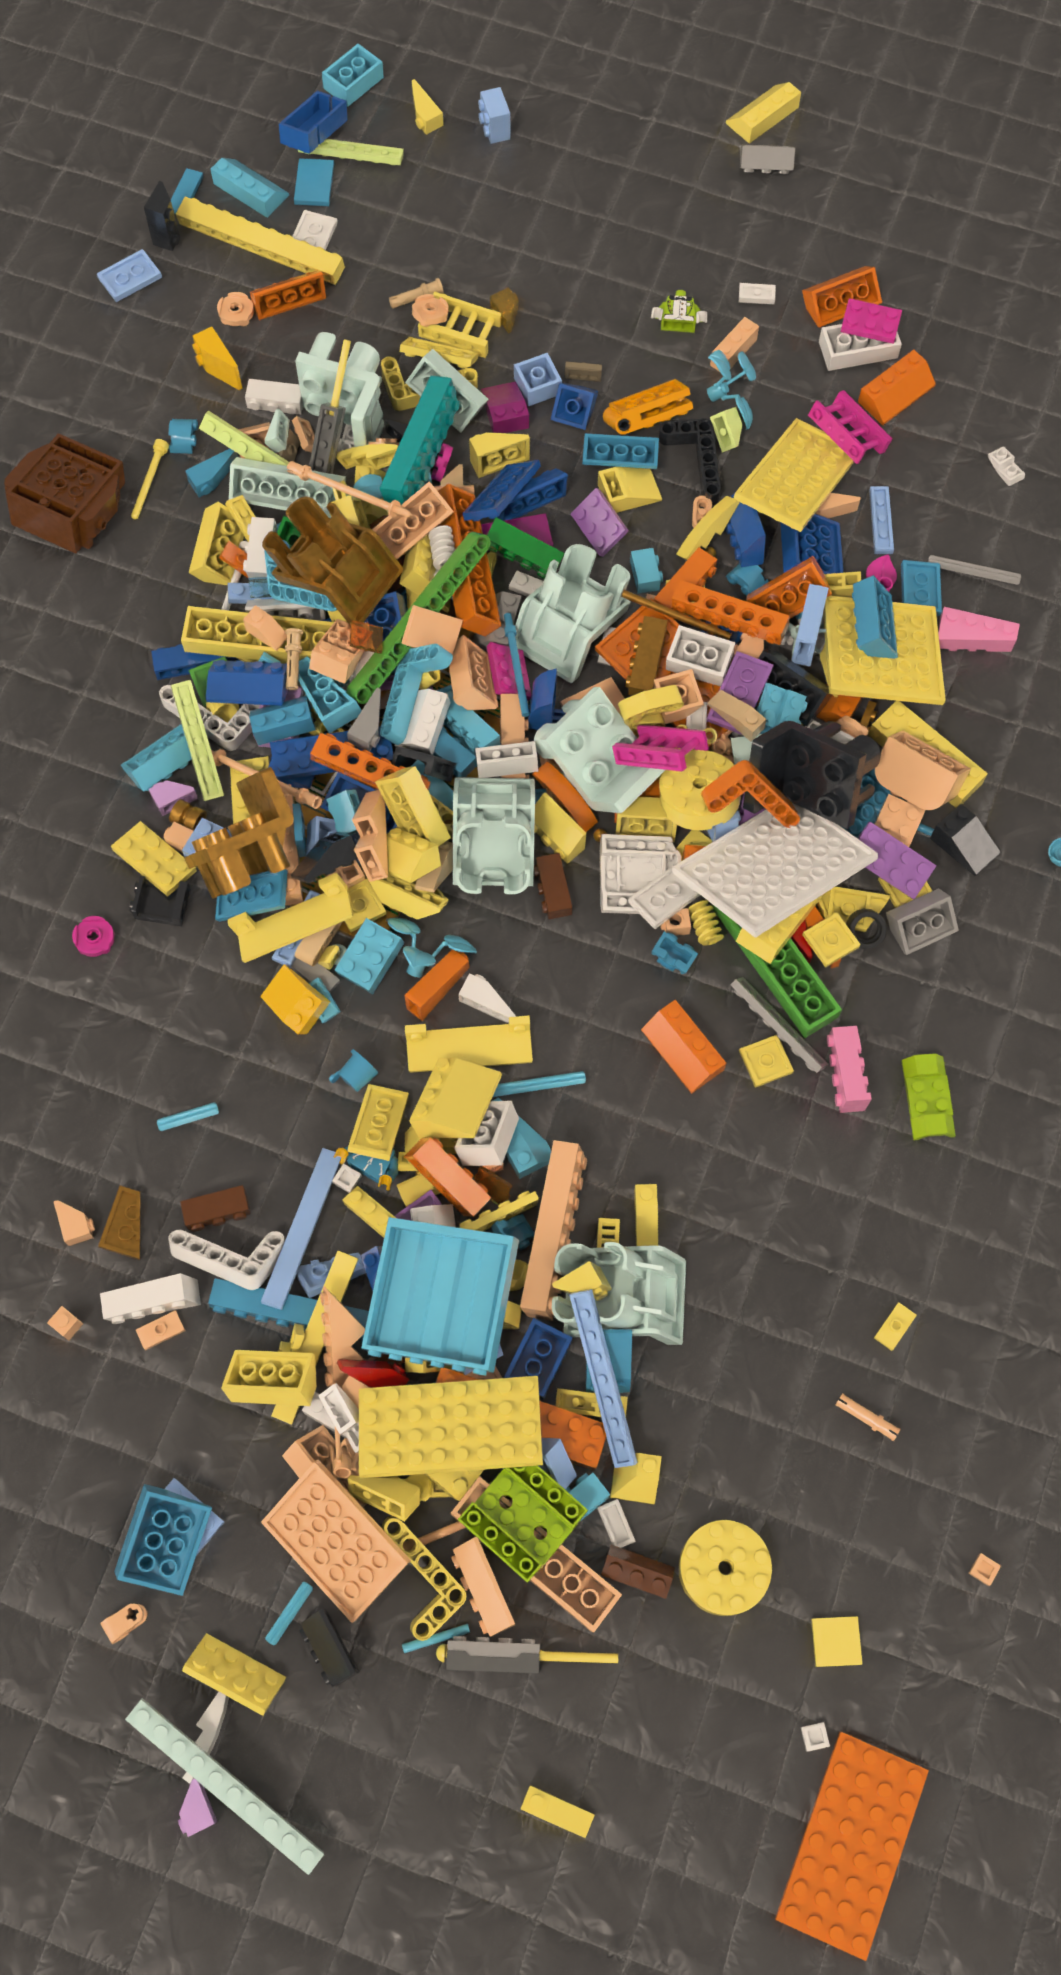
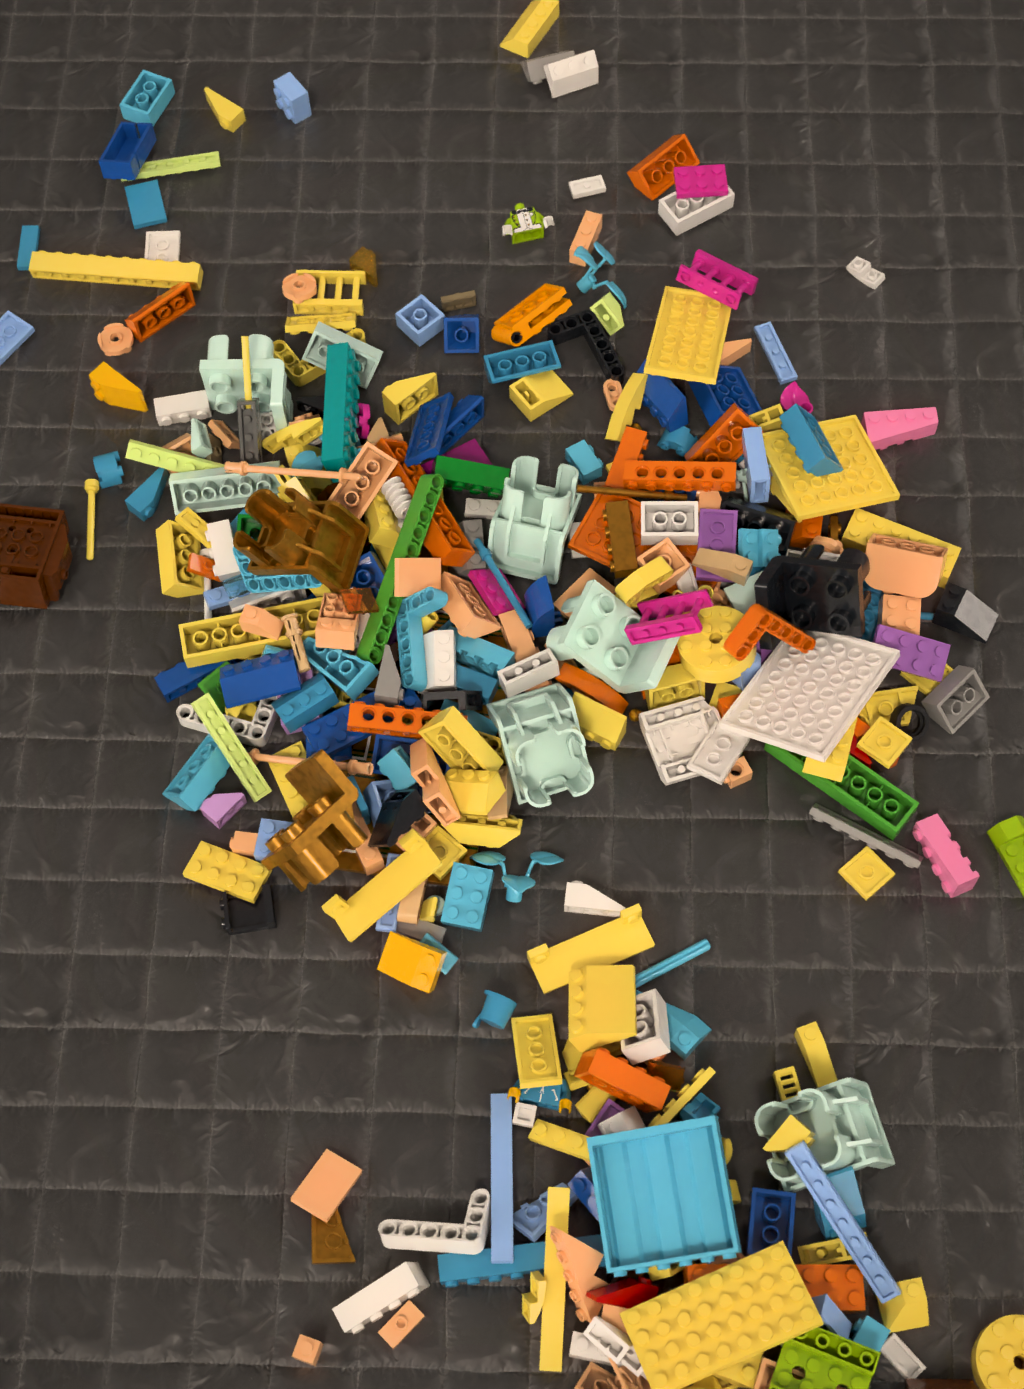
camera: 15 degrees left, 5 degrees down
(73, 1224) = (280, 1249): light nougat slope -> none
(96, 947) = (186, 960): dark pink plate -> none
(137, 1180) = (326, 1185): none -> light nougat tile
(161, 219) = (19, 277): black slope -> none
(186, 815) = (244, 821): pearl gold wheel -> none
(187, 1116) = (350, 1107): medium azure axle -> none
(215, 1208) = (411, 1187): reddish brown brick -> none
(247, 186) = (85, 225): medium azure slope -> none
(262, 895) = (352, 872): dark azure tile -> none
(271, 1378) = (528, 1332): light yellow slope -> none
(411, 295) = (278, 277): tan pin -> none
(436, 984) = (539, 902): orange slope -> none
(506, 408) = (401, 354): magenta slope -> none
(553, 886) = (612, 776): reddish brown brick -> none
(553, 1227) = (737, 1097): light nougat brick -> none
(599, 522) = (526, 431): medium lavender plate -> none
(672, 954) = (746, 803): dark azure cylinder -> none
(684, 1046) = (788, 884): orange slope -> none
(704, 924) = (762, 765): light yellow piece -> none
(785, 171) = (572, 73): none -> white slope
(897, 387) = (744, 233): orange slope -> none
(921, 584) = (834, 398): dark azure plate -> none
(976, 570) = (875, 371): light grey axle -> none

